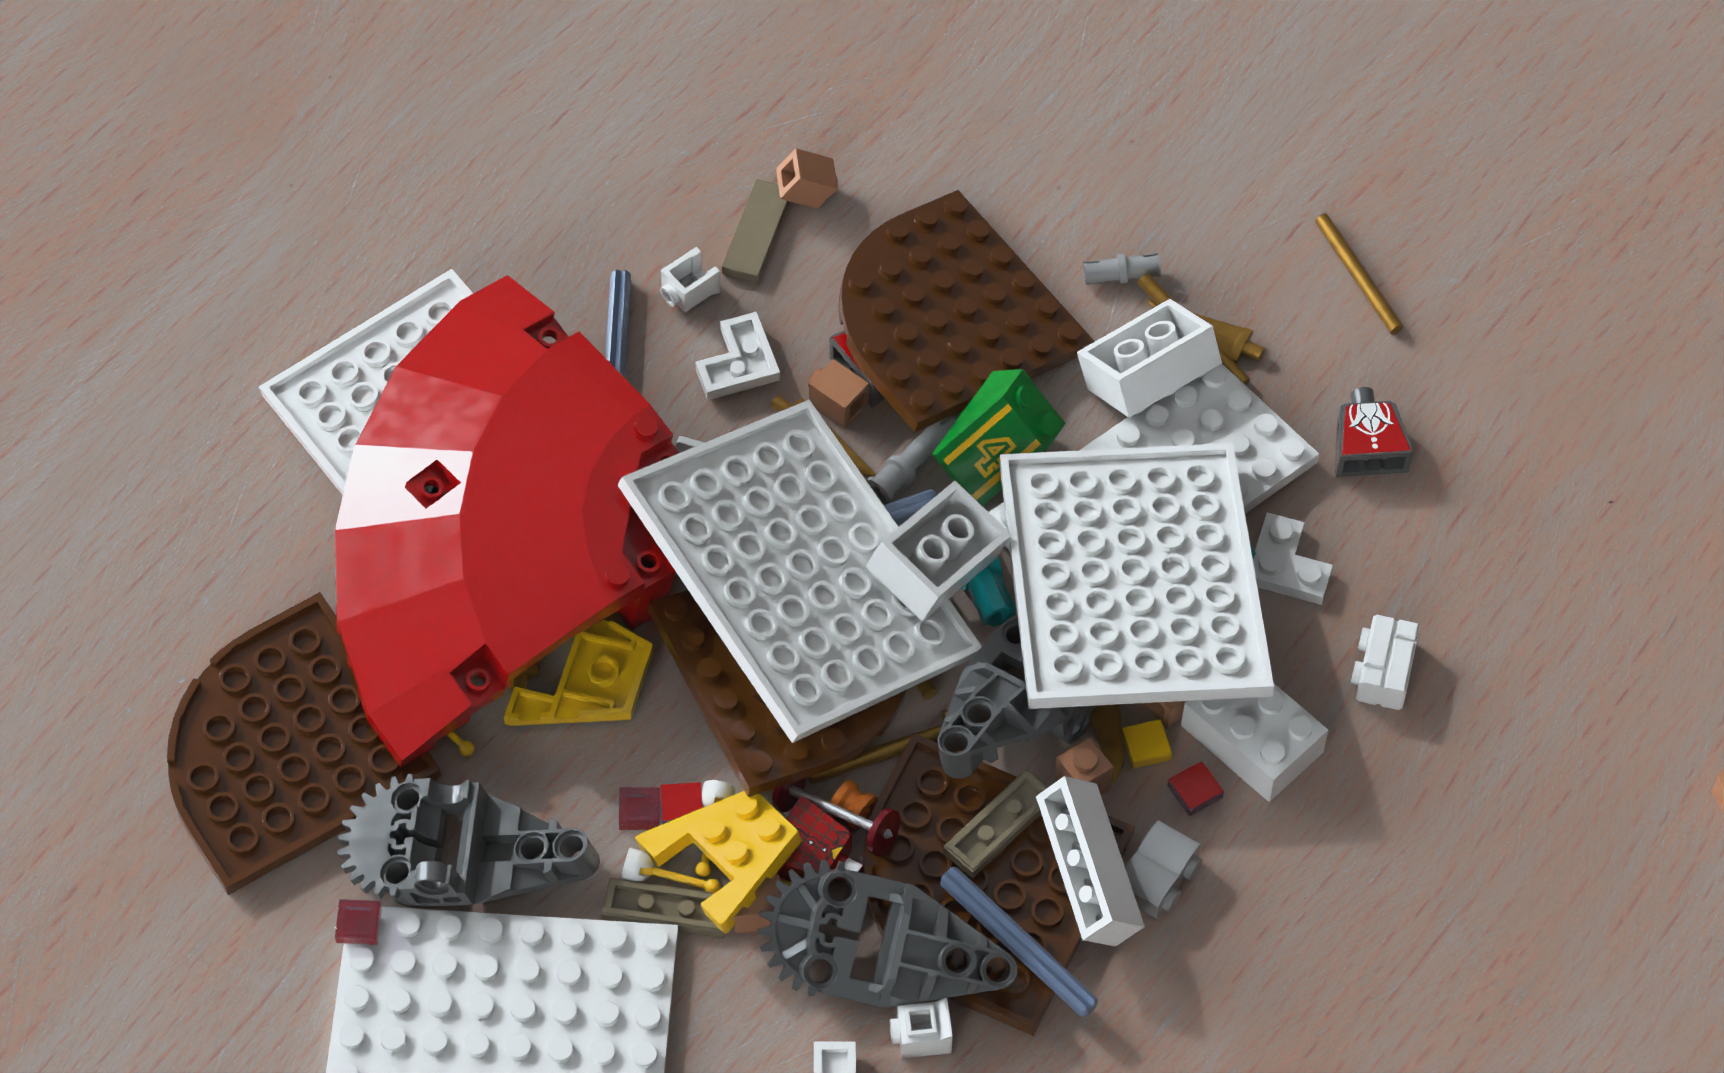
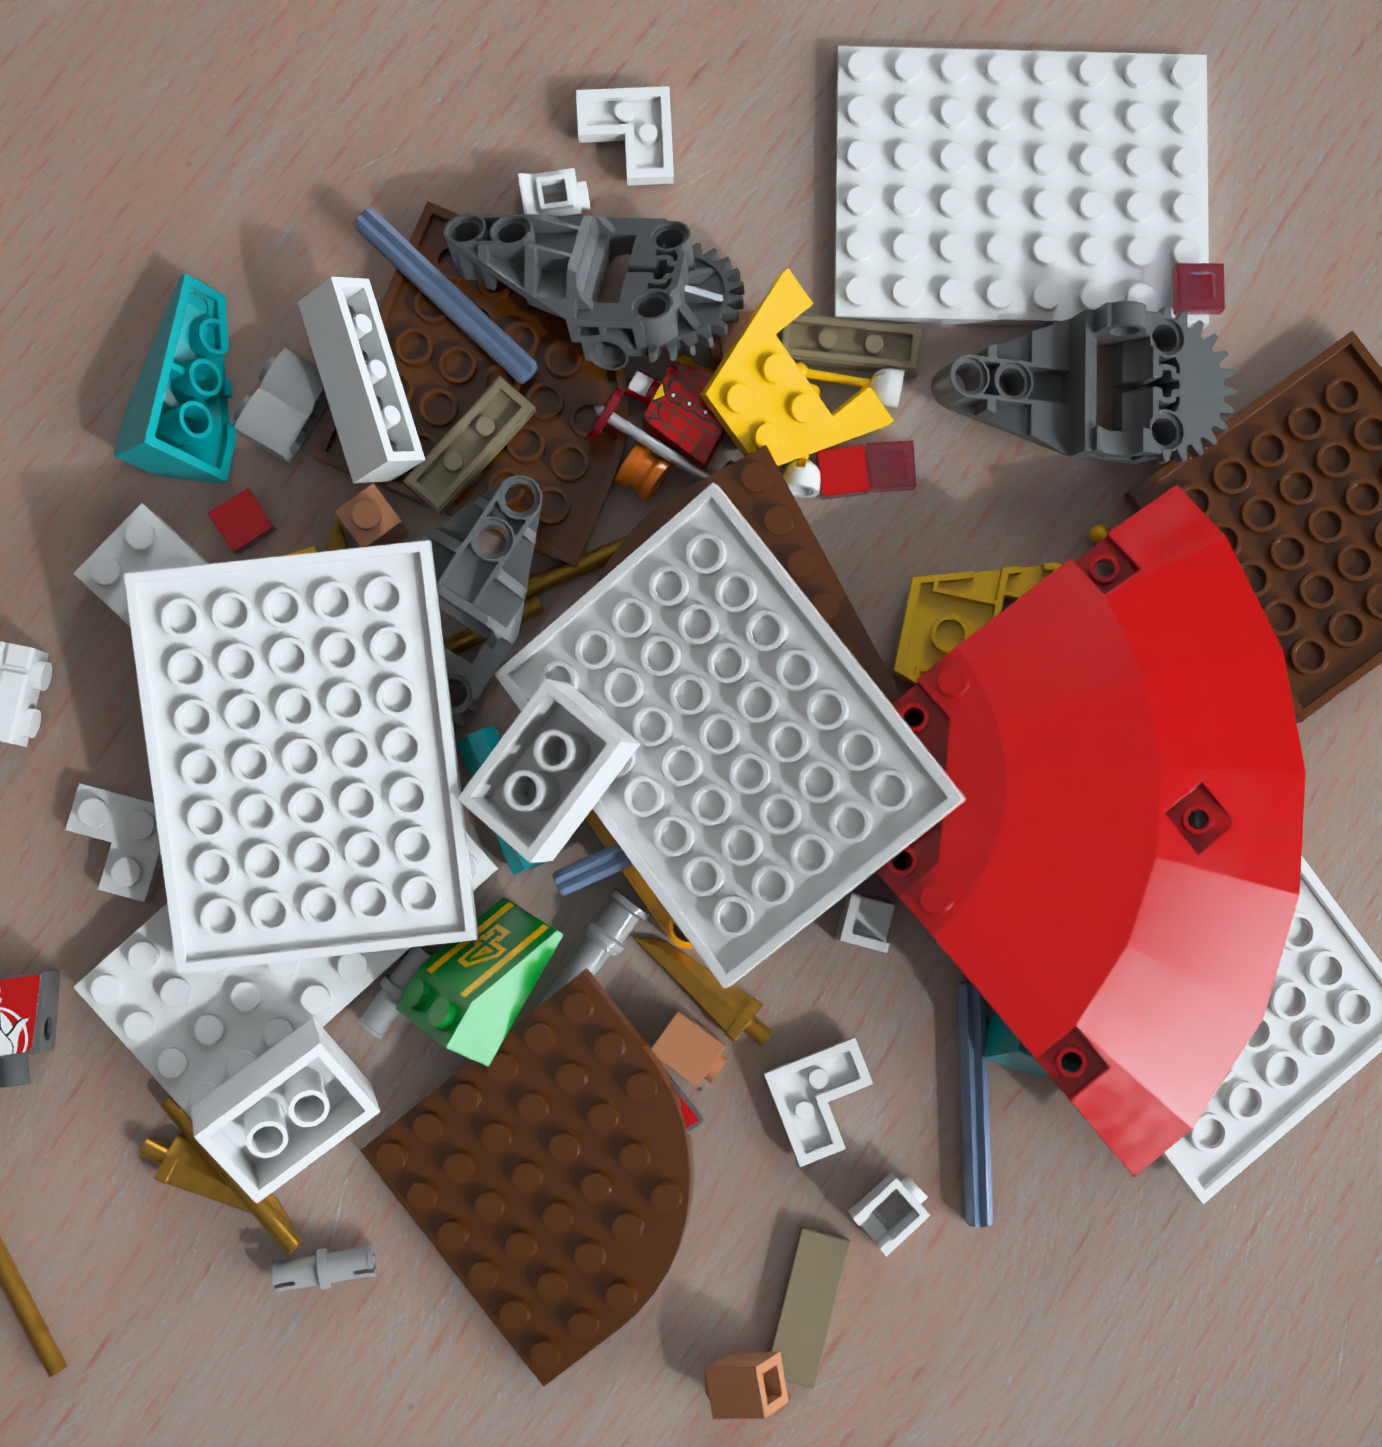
camera: 170 degrees right, 25 degrees up
(1074, 433) = (382, 1009): none -> light grey pin
(1249, 872) = (180, 401): none -> teal wedge

